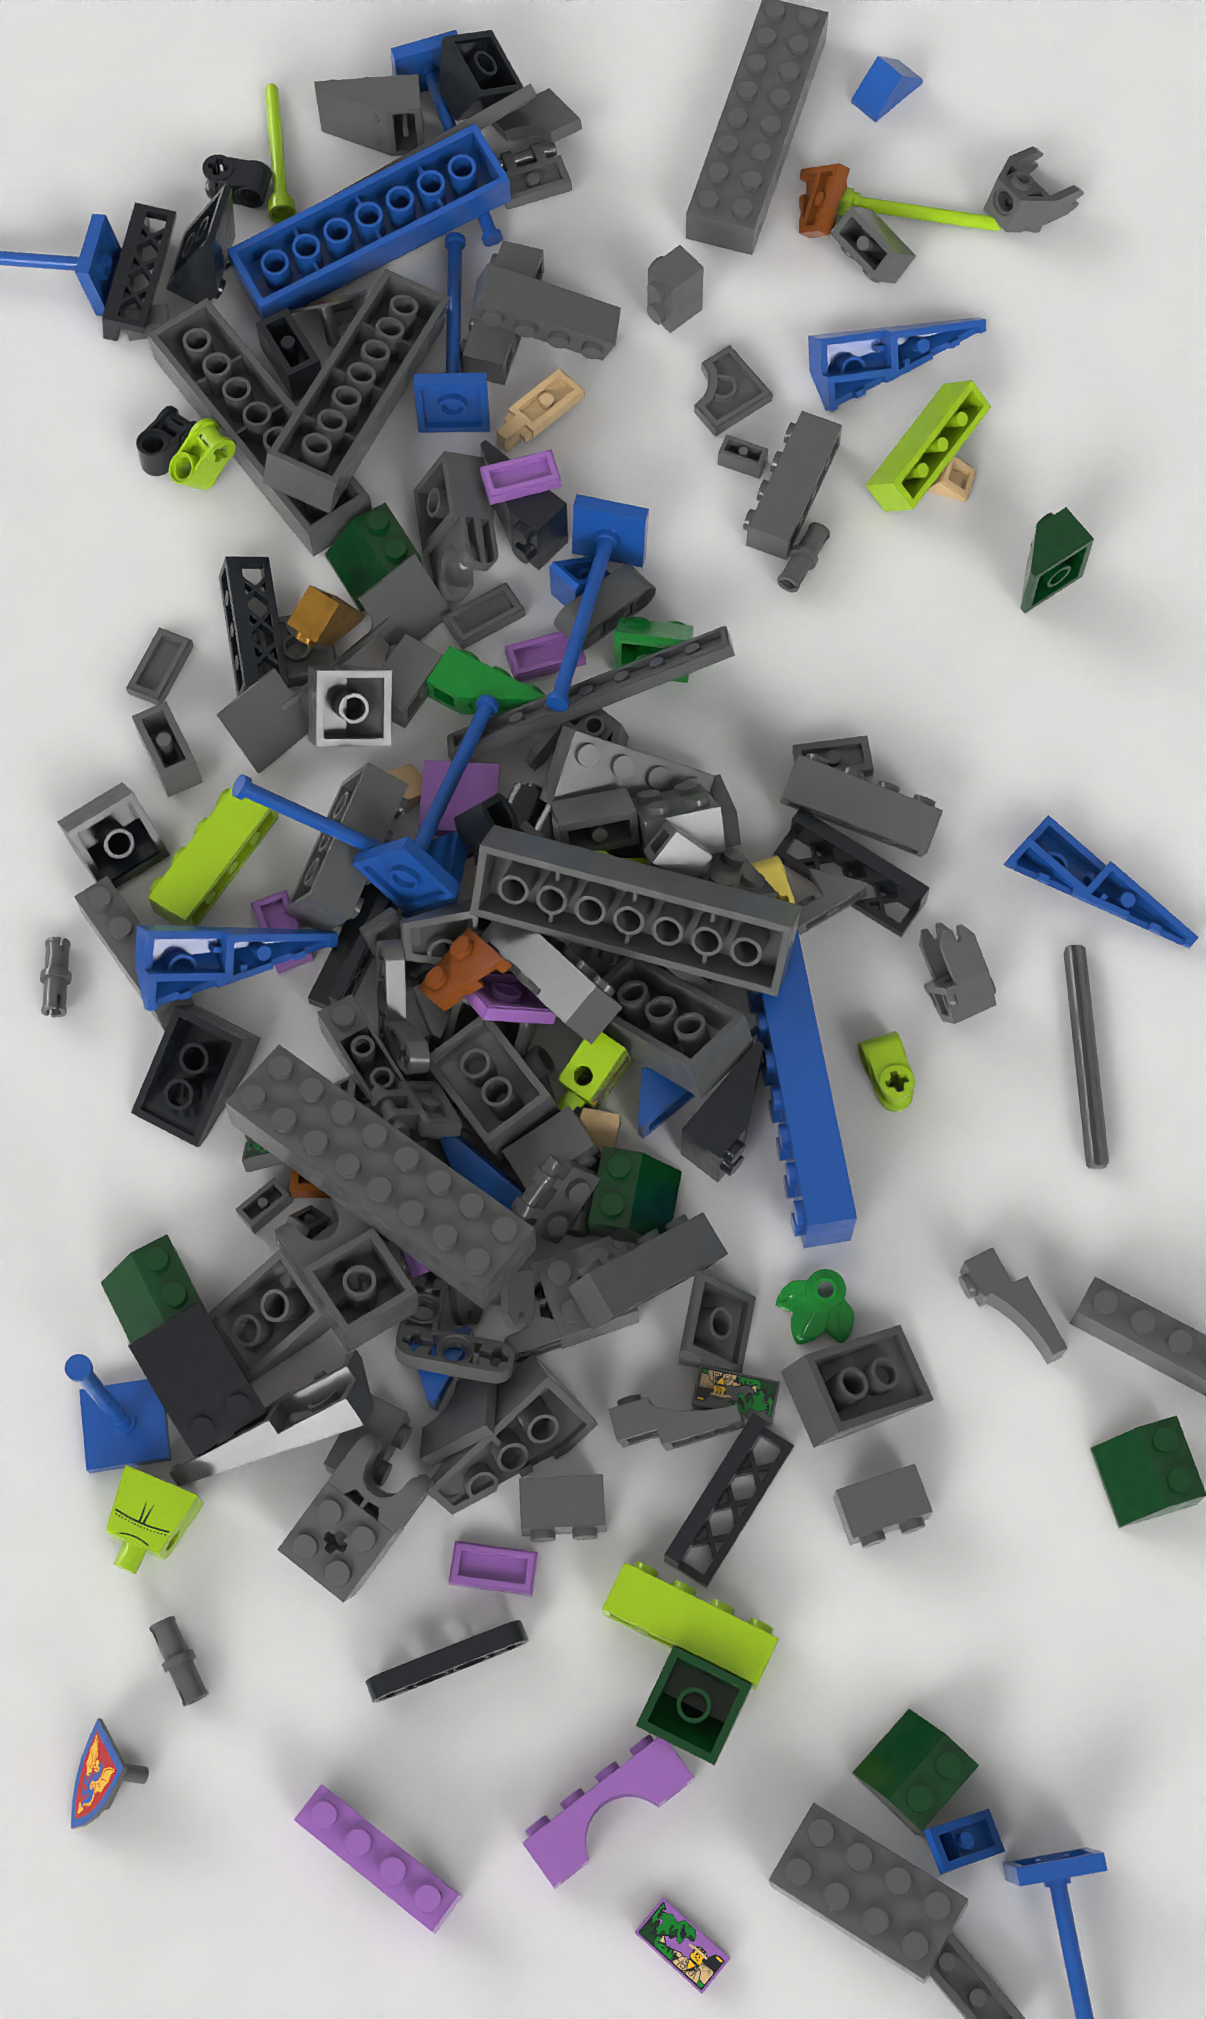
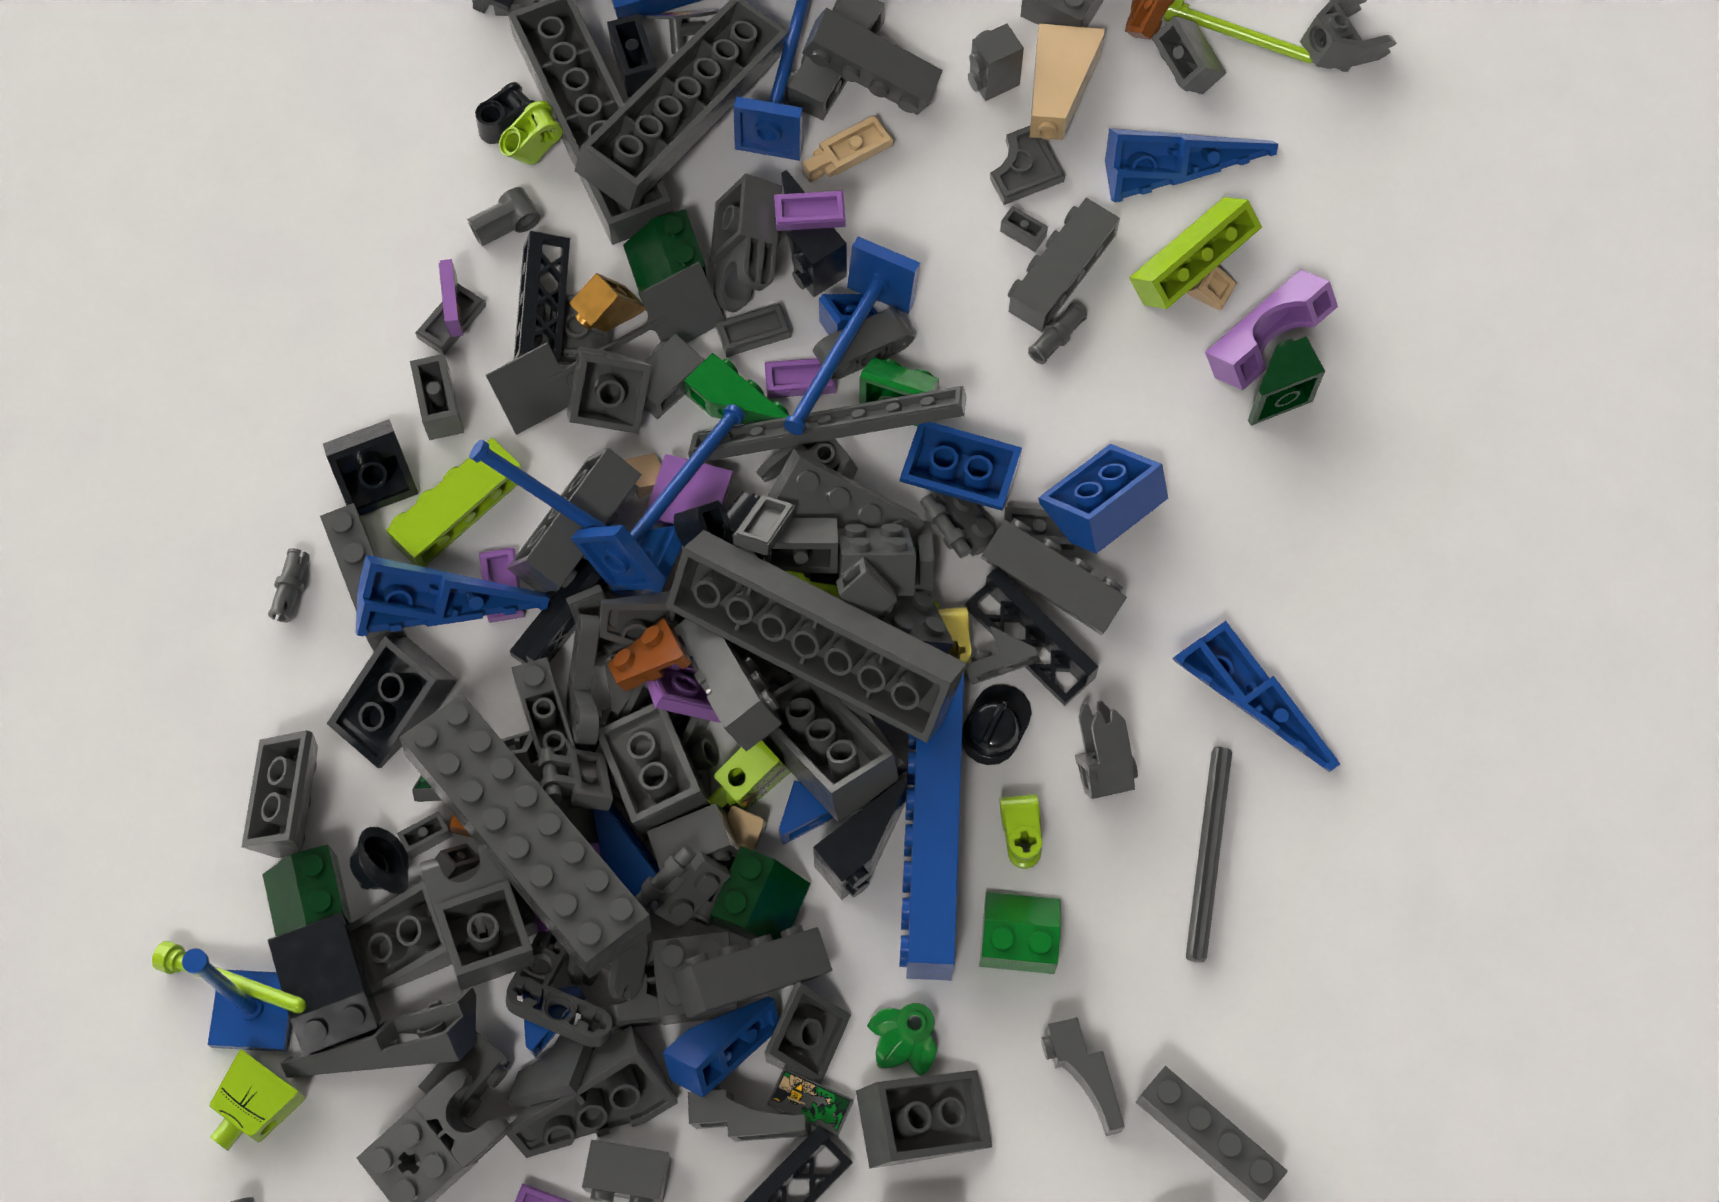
camera: 10 degrees right, 0 degrees up
(26, 1388) = (168, 959): none -> lime piece
(102, 1193) = (280, 794): none -> dark grey slope
(157, 643) = (450, 298): none -> medium lavender tile
(199, 543) = (511, 213): none -> dark grey piece
(224, 1242) = (380, 861): none -> black piece
(554, 807) = (764, 525): none -> dark grey tile
(627, 1357) = (719, 1046): none -> blue slope
(739, 709) = (961, 465): none -> blue slope
(744, 288) = (1061, 75): none -> tan slope
(749, 769) = (960, 522): none -> dark grey plate
(836, 969) = (996, 724): none -> black piece
(895, 713) = (1105, 497): none -> blue slope
(912, 1177) = (1020, 933): none -> green slope
(1045, 477) = (1296, 304): none -> medium lavender arch

